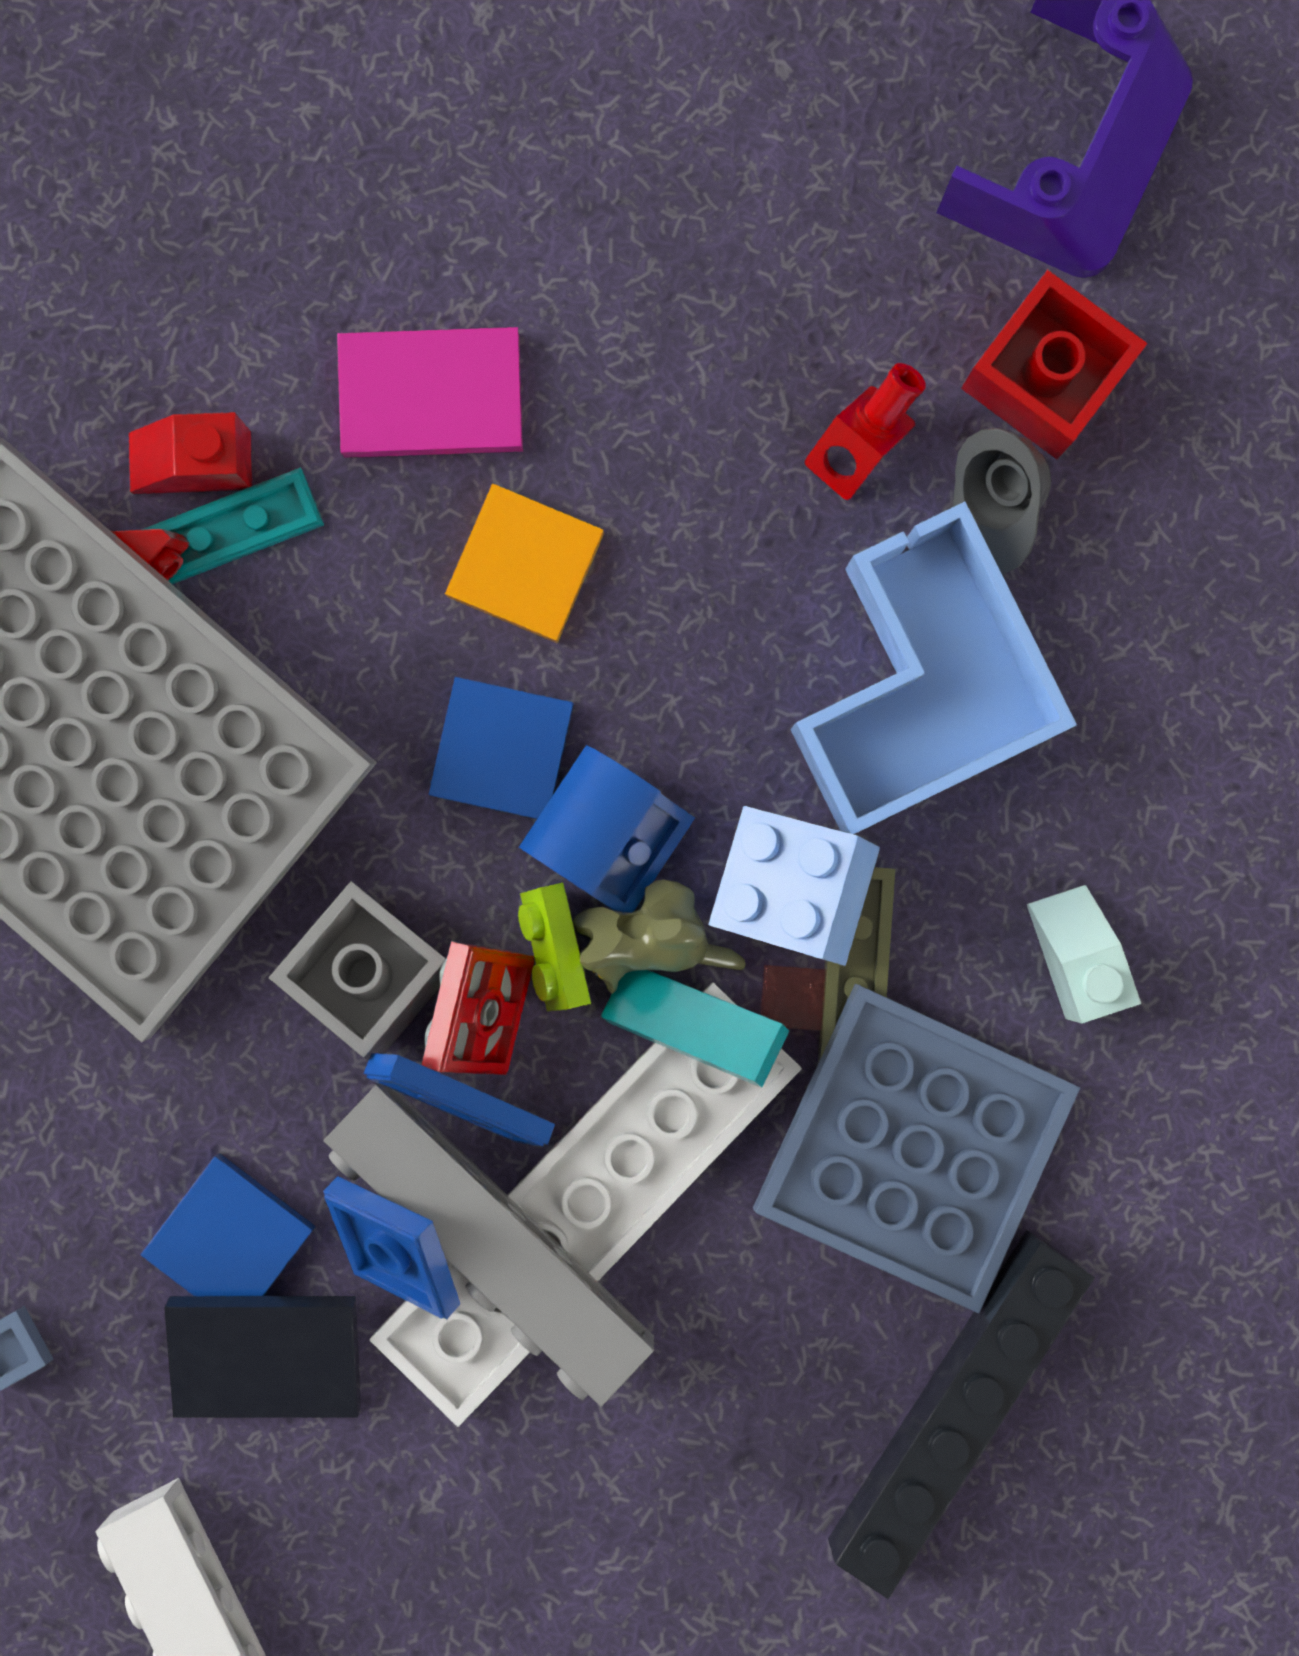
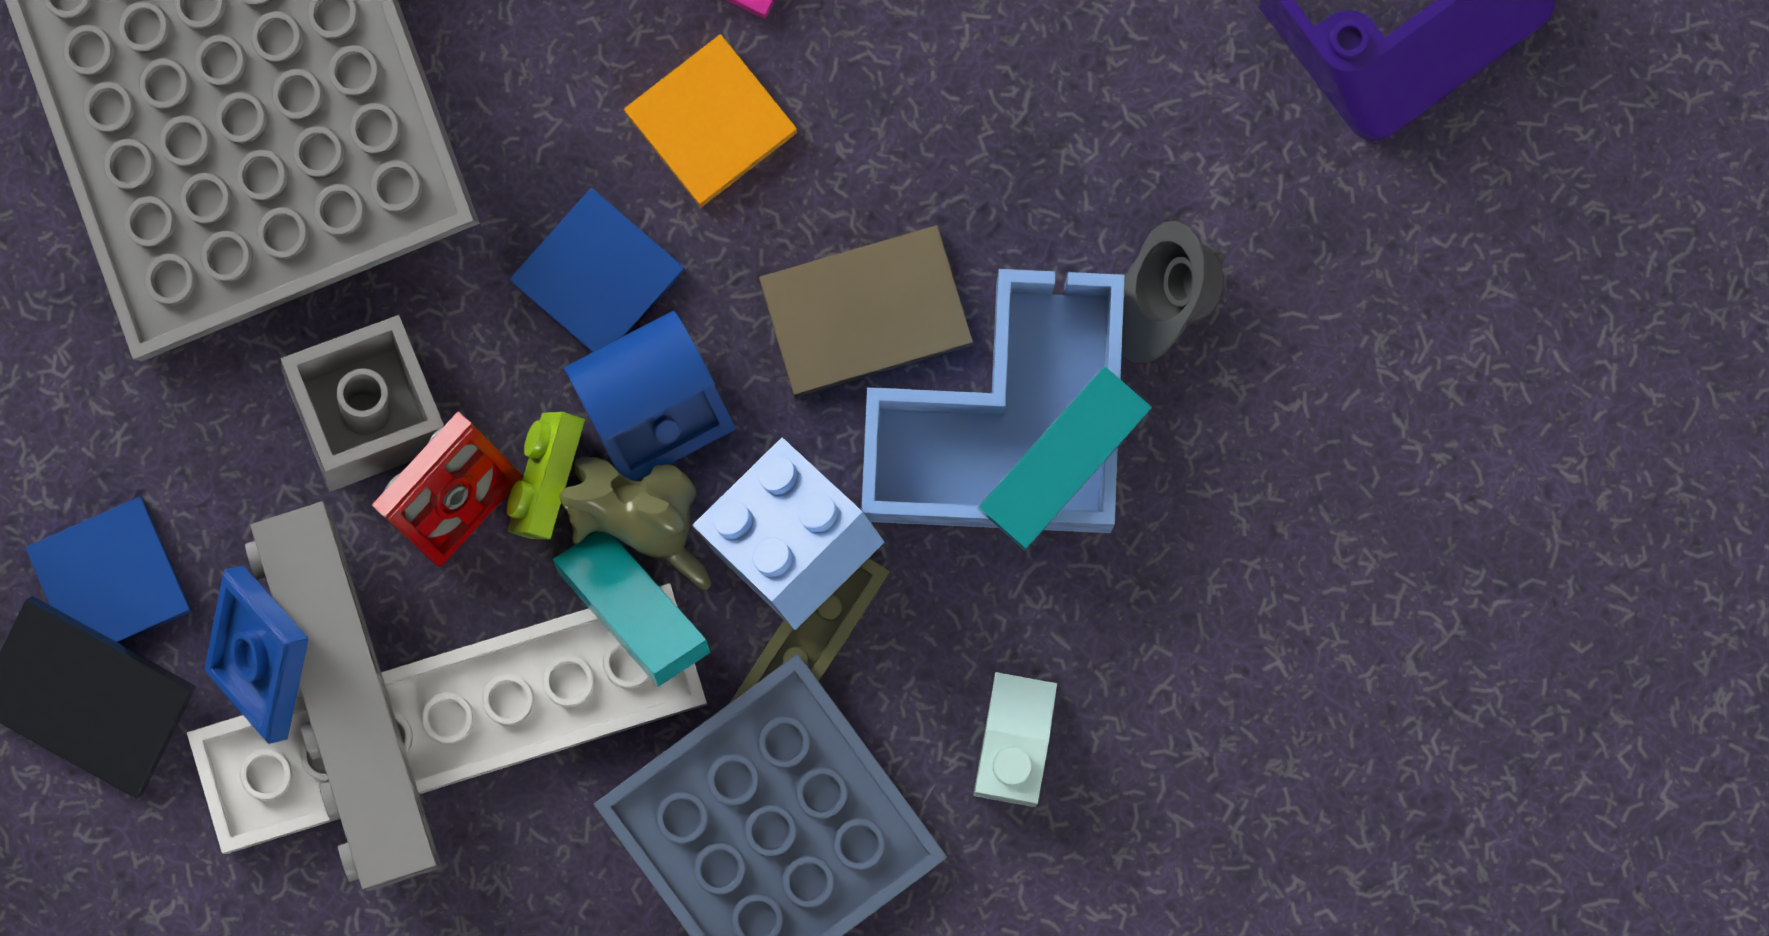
camera: 25 degrees right, 5 degrees down
(458, 1099) = (386, 557): blue tile -> none
(748, 655) = (865, 311): none -> dark tan tile
(793, 996) = (736, 638): clear red tile -> none
(868, 429) = (1082, 167): red bracket -> none
(1005, 690) = (1064, 458): none -> teal tile
(1053, 365) = (1276, 199): red brick -> none

